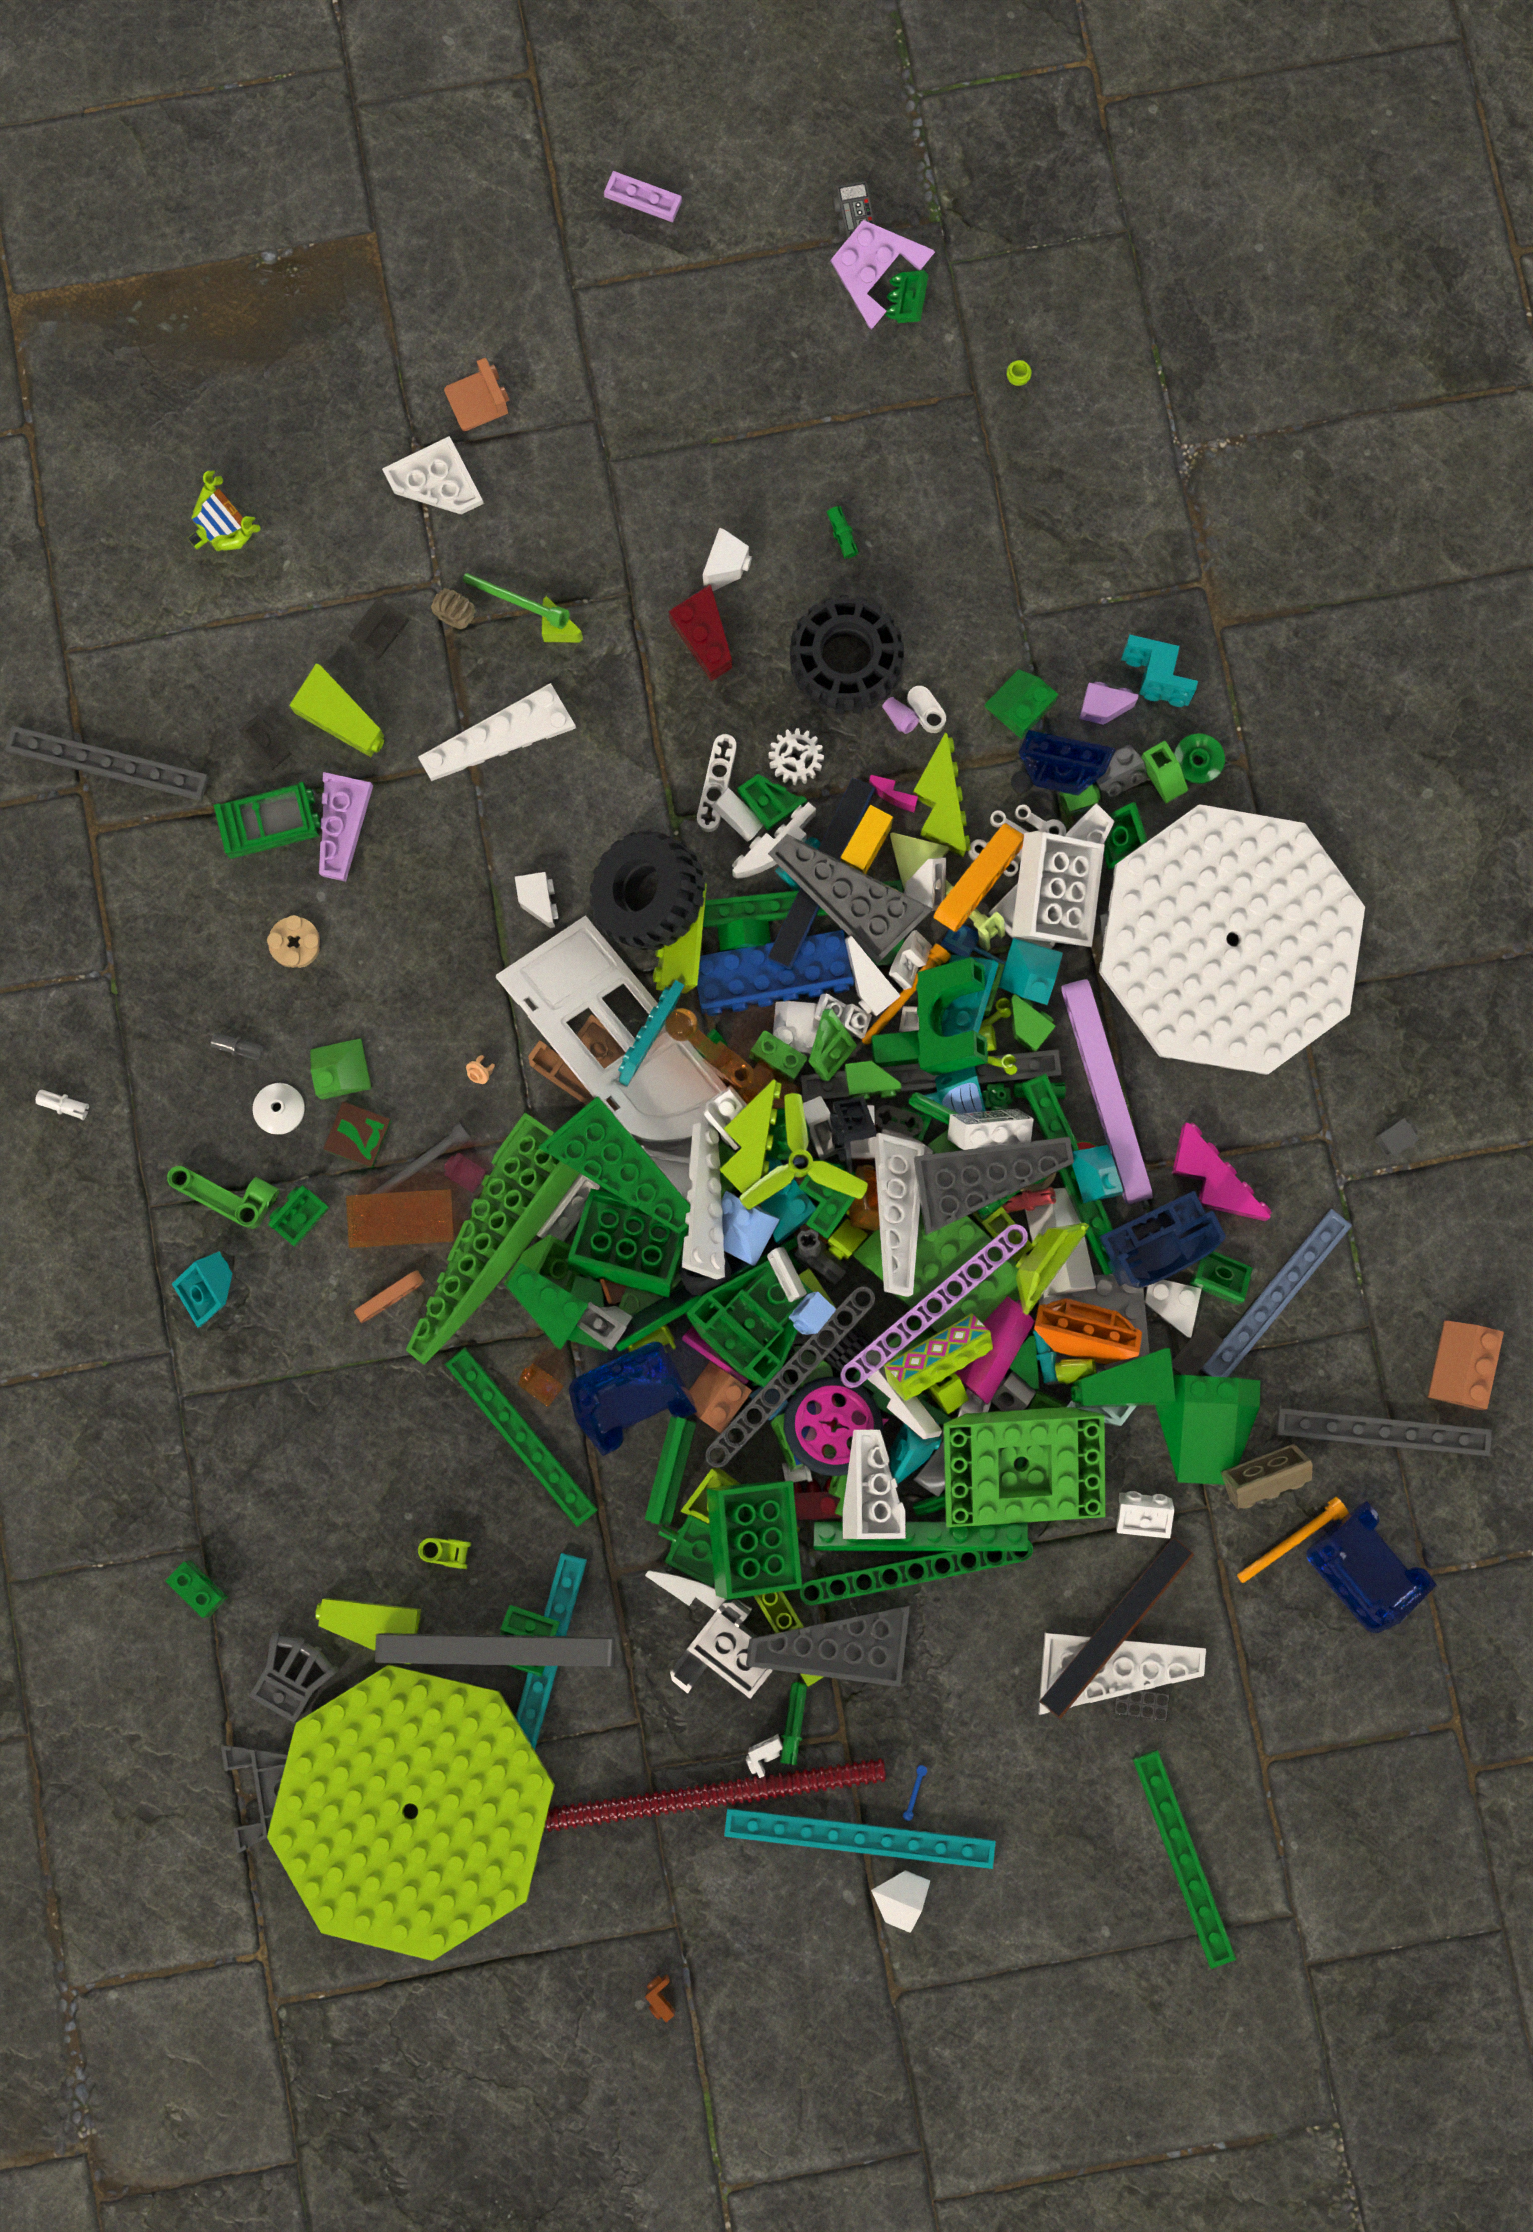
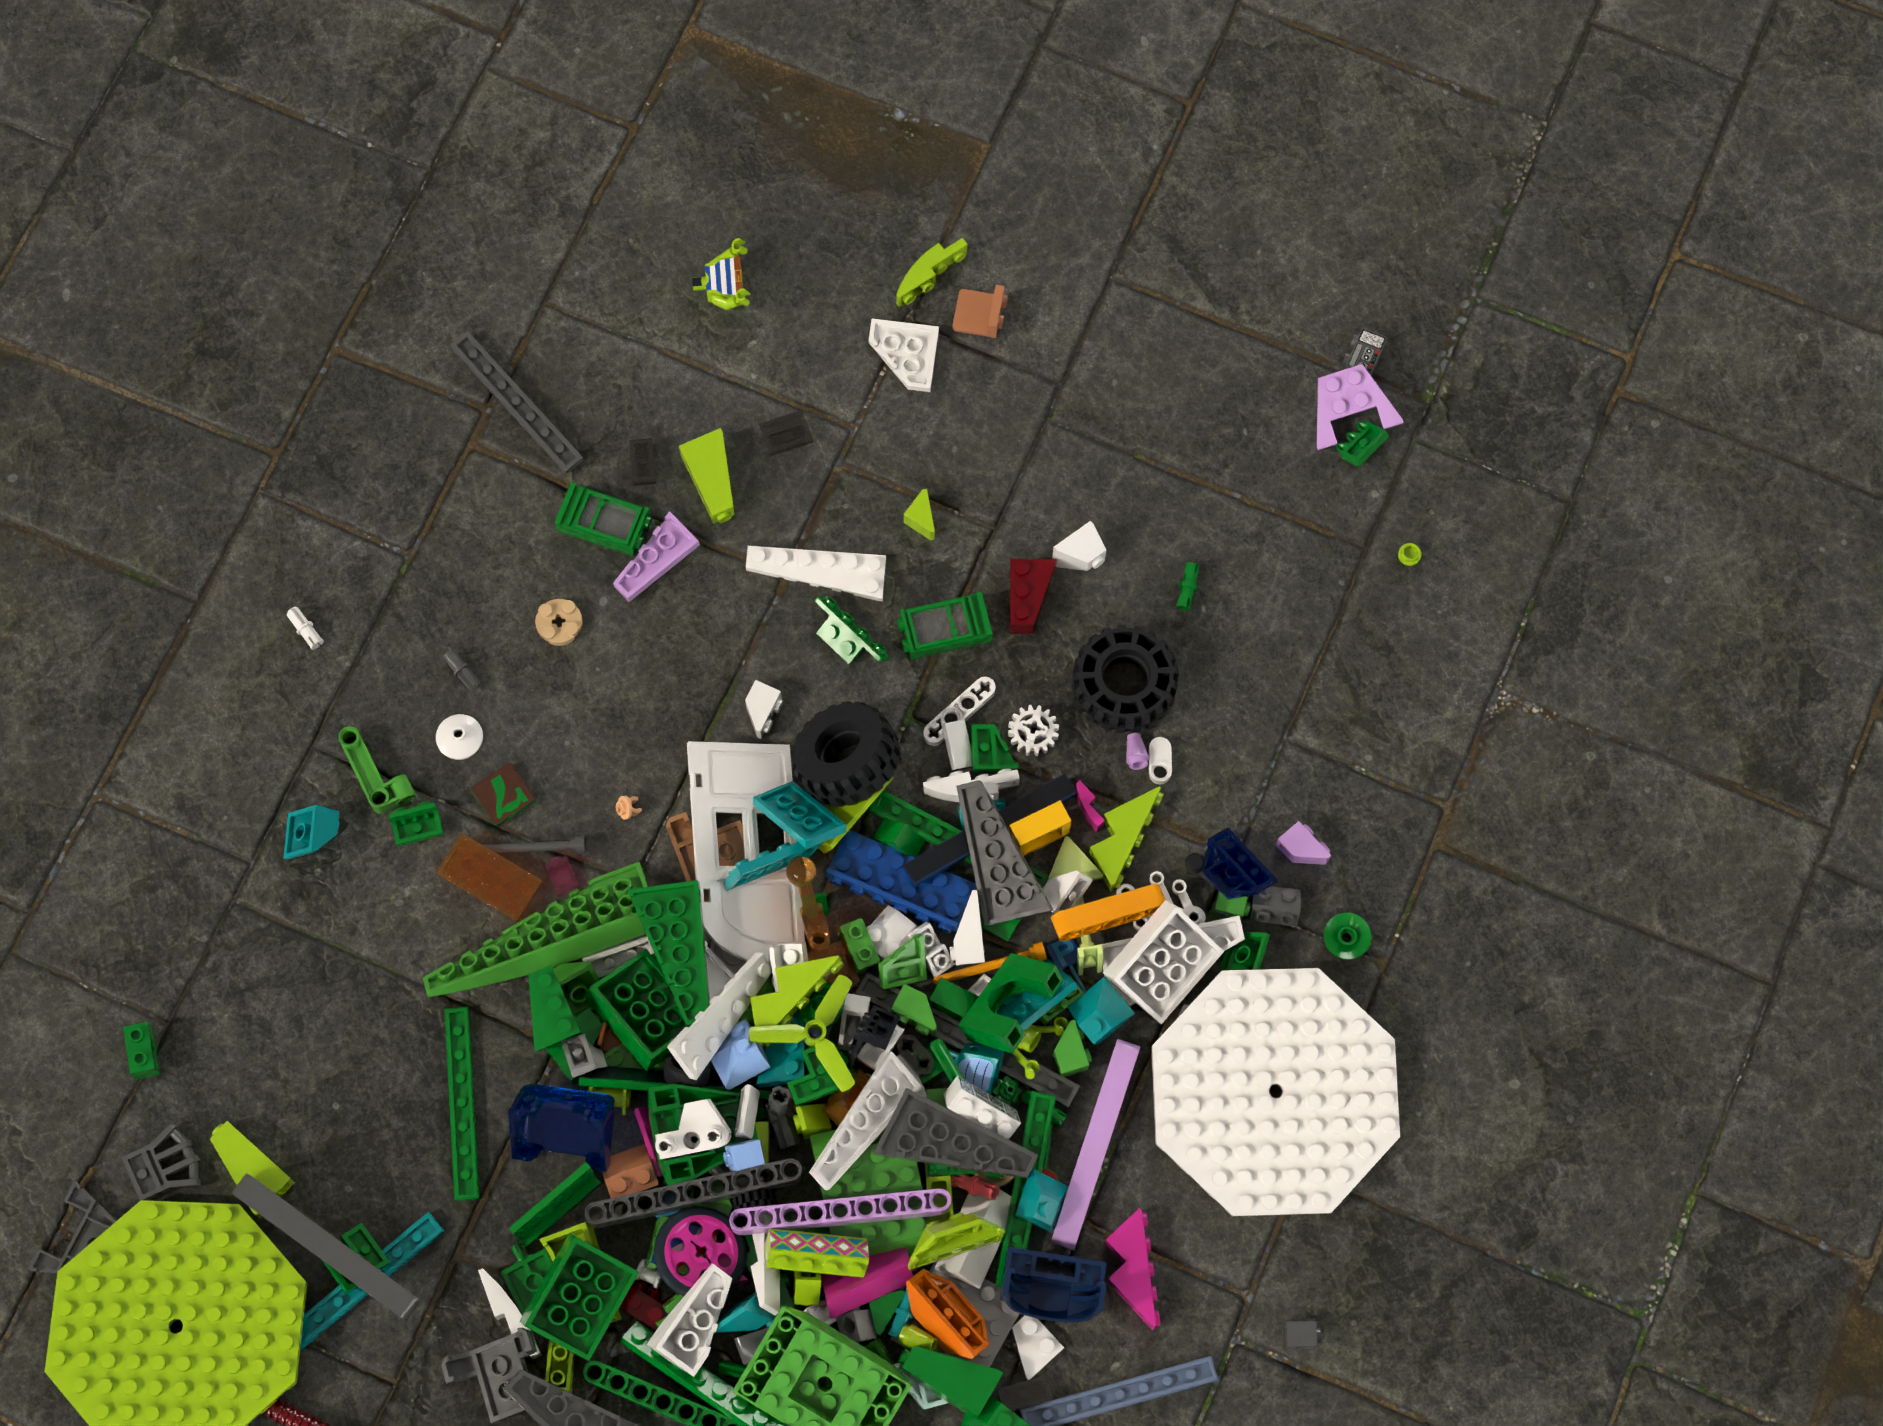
camera: 30 degrees right, 10 degrees down
(339, 1069) = (524, 737): bright green slope -> none
(389, 1296) = (440, 930): nougat beam -> none
(399, 391) = (923, 273): none -> lime slope
(446, 1552) = (346, 1152): lime piece -> none
(453, 608) = (851, 453): dark tan gear -> none
(539, 1384) = (504, 1072): clear orange bracket -> none
(556, 616) = (922, 507): bright green piece -> none
(566, 782) = (845, 636): none -> bracket
(643, 196) = (1210, 243): lavender plate -> none
(645, 974) = (799, 814): none -> teal plate
(650, 713) = (945, 626): none -> green door
(752, 1310) = (698, 1120): none -> white piece
(911, 955) = (1011, 940): white slope -> none
(1022, 702) = (1237, 803): green slope -> none
(1158, 675) = (1359, 847): teal bracket -> none
(1164, 771) = (1312, 928): bright green slope -> none
(1222, 1277) = (1086, 1348): green slope -> none

